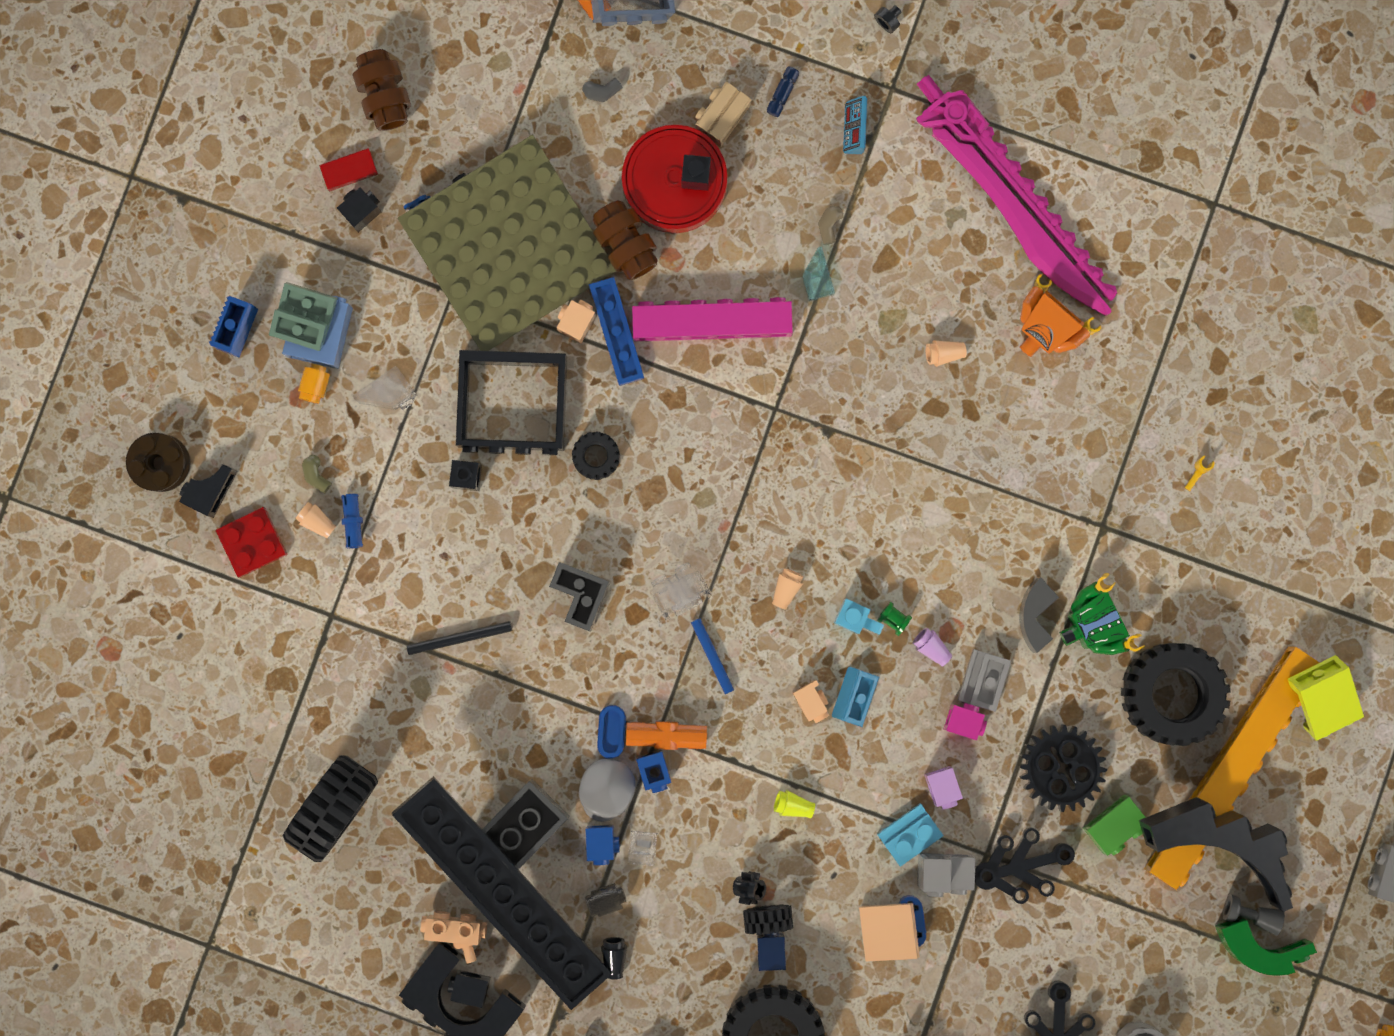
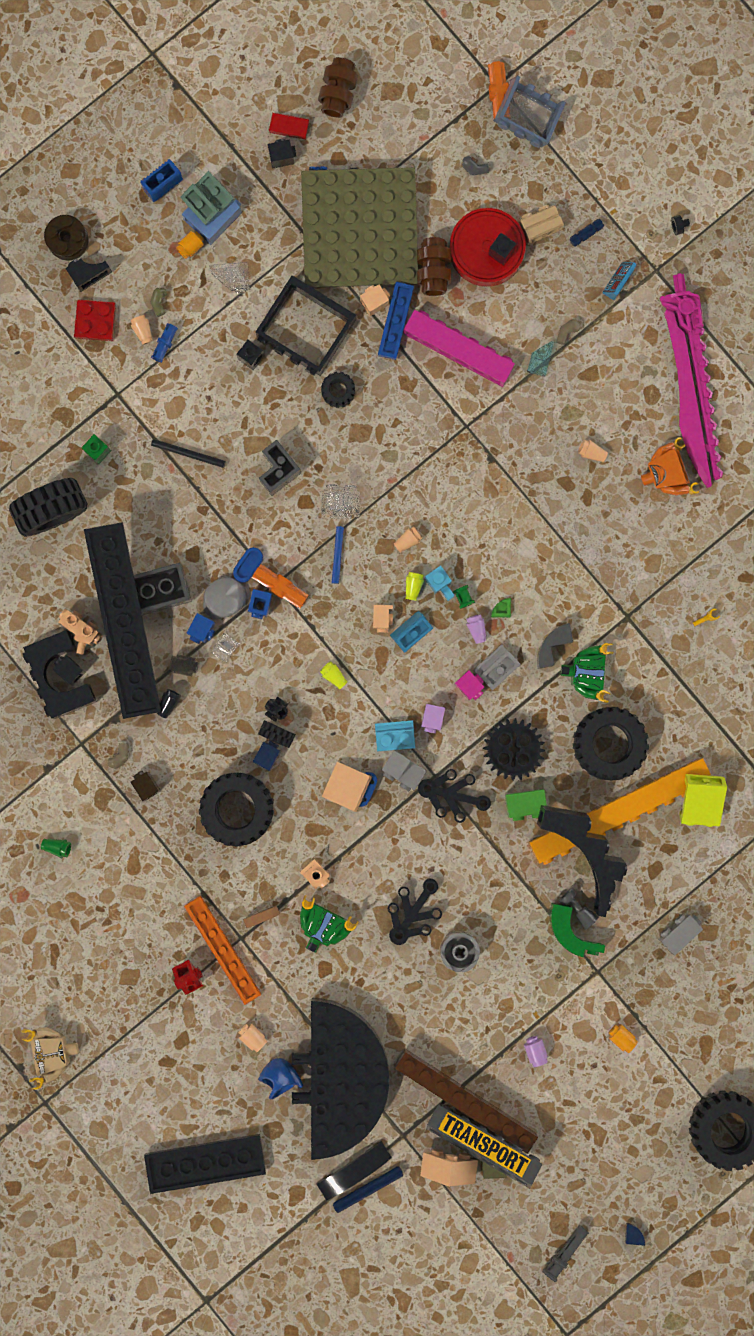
camera: 25 degrees right, 0 degrees up
(345, 699) = (96, 449): none -> green brick
(825, 638) = (413, 585): none -> neon yellow cone
(948, 605) = (502, 609): none -> bright green tile

